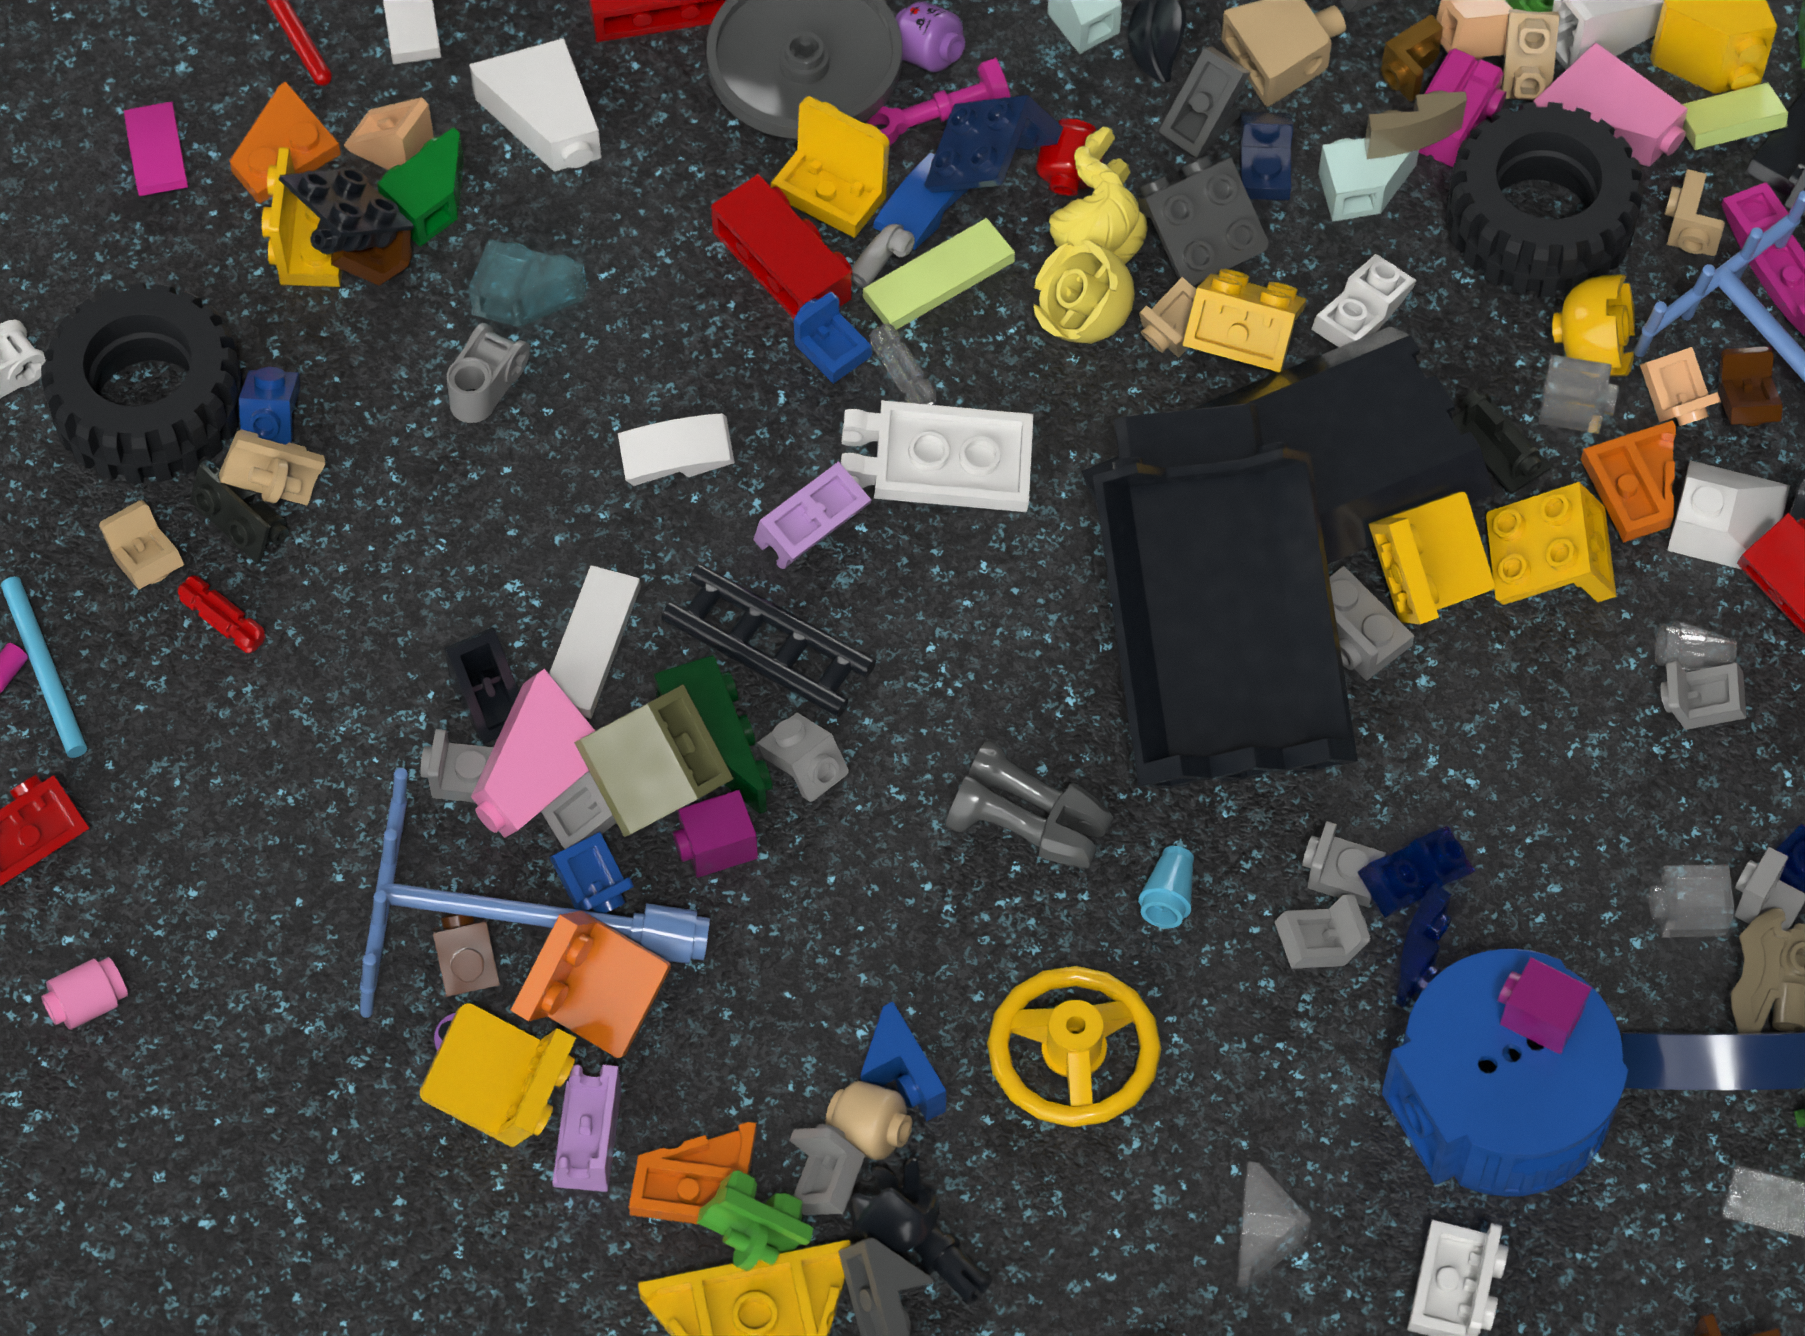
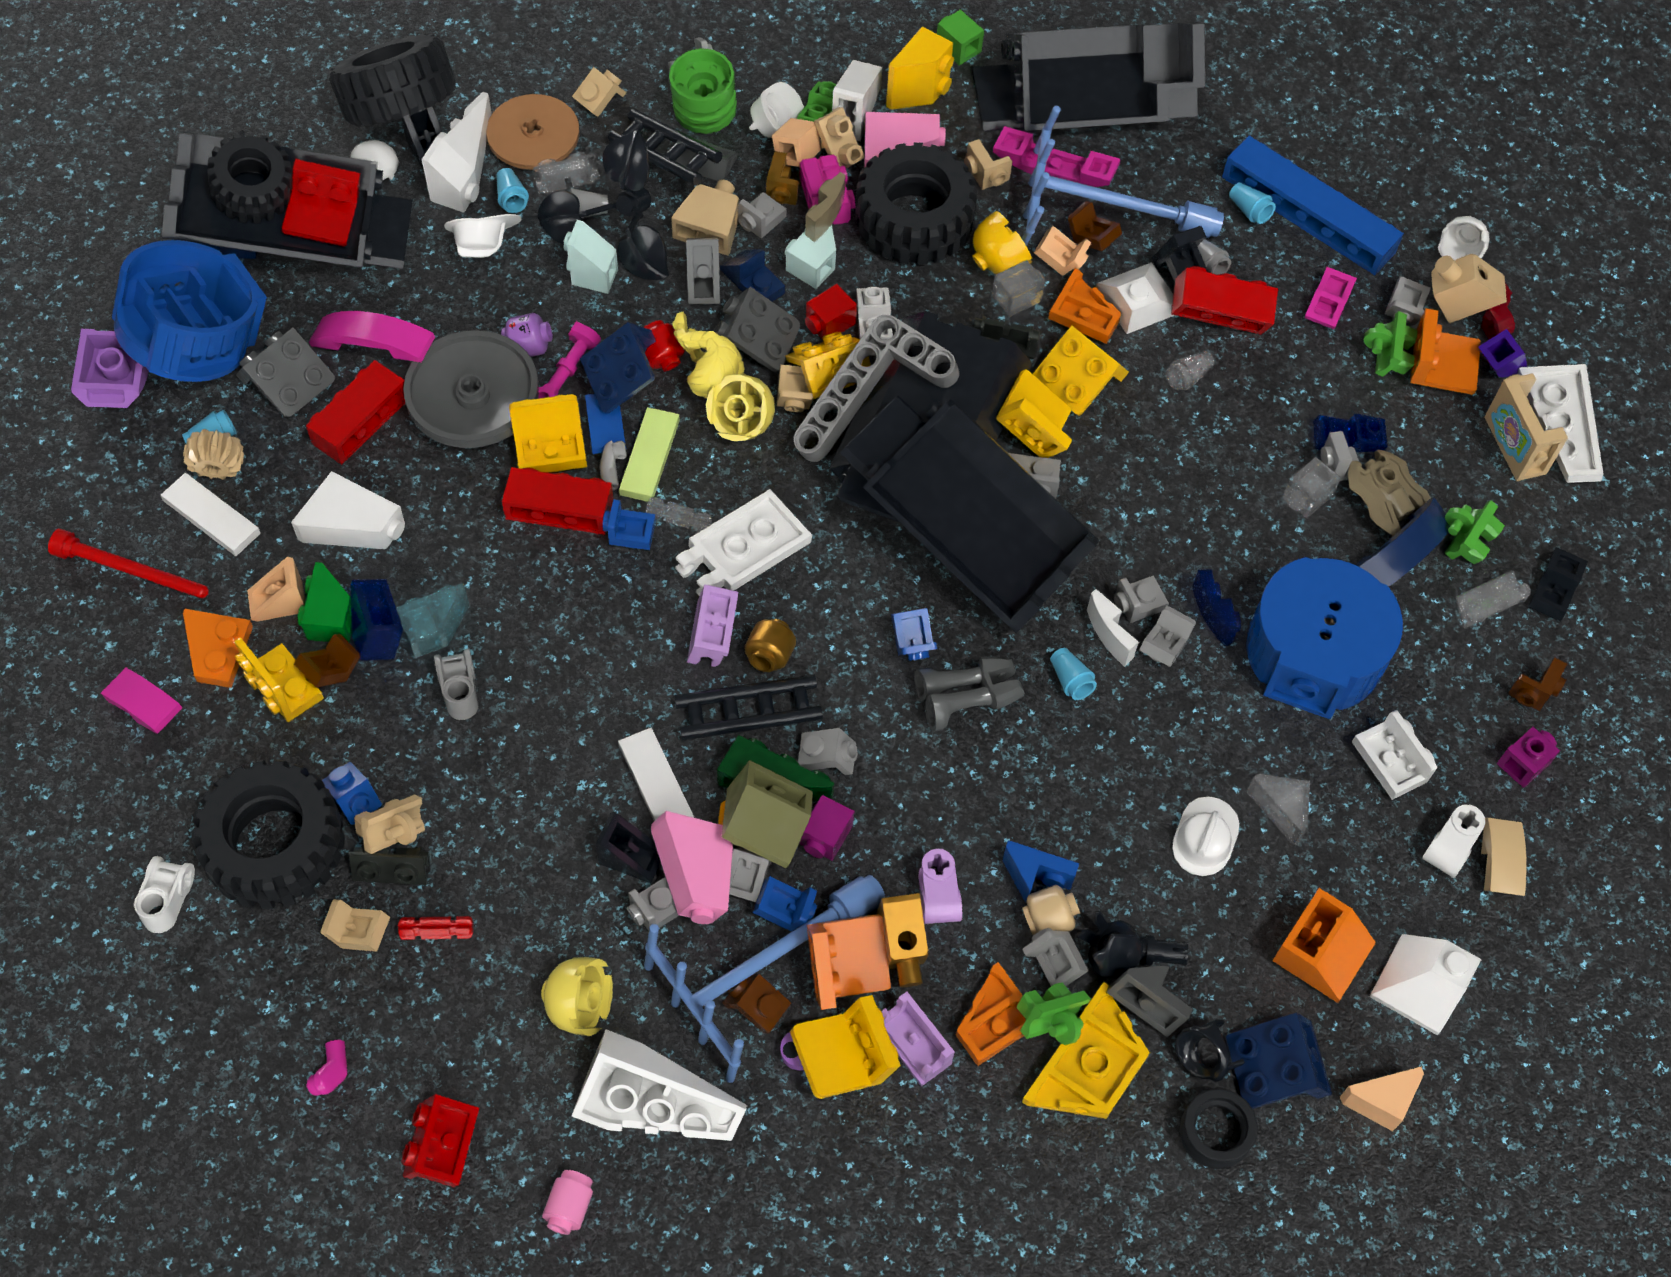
camera: 45 degrees left, 0 degrees up
(43, 667) = (358, 1039): medium azure bar -> none
(261, 942) = (647, 1091): none -> white wedge
(288, 796) = (578, 995): none -> light yellow cylinder
(348, 208) = (308, 646): black hinge -> none
(458, 236) = (374, 620): none -> clear blue slope
(676, 446) = (603, 644): white slope -> none
(689, 995) = (904, 923): none -> torso
(767, 1002) = (939, 893): none -> lavender piece
(853, 587) = (770, 645): none -> pearl gold head
(1029, 700) = (913, 634): none -> bracket
(1073, 1044) = (1106, 790): yellow piece -> none
(1142, 1189) = (1205, 836): none -> white piece
(1253, 364) = (867, 377): none -> light grey beam
(1270, 865) = (1105, 621): none -> white slope
(1309, 259) = (830, 312): none -> red brick
(1349, 83) = (760, 214): none -> light grey bracket
(1409, 873) = (1176, 572): clear blue slope -> none
(1543, 1004) = (1329, 582): magenta brick -> none
(1704, 695) = (1218, 386): light grey bracket -> none
(1733, 116) = (957, 105): yellowish green tile -> none

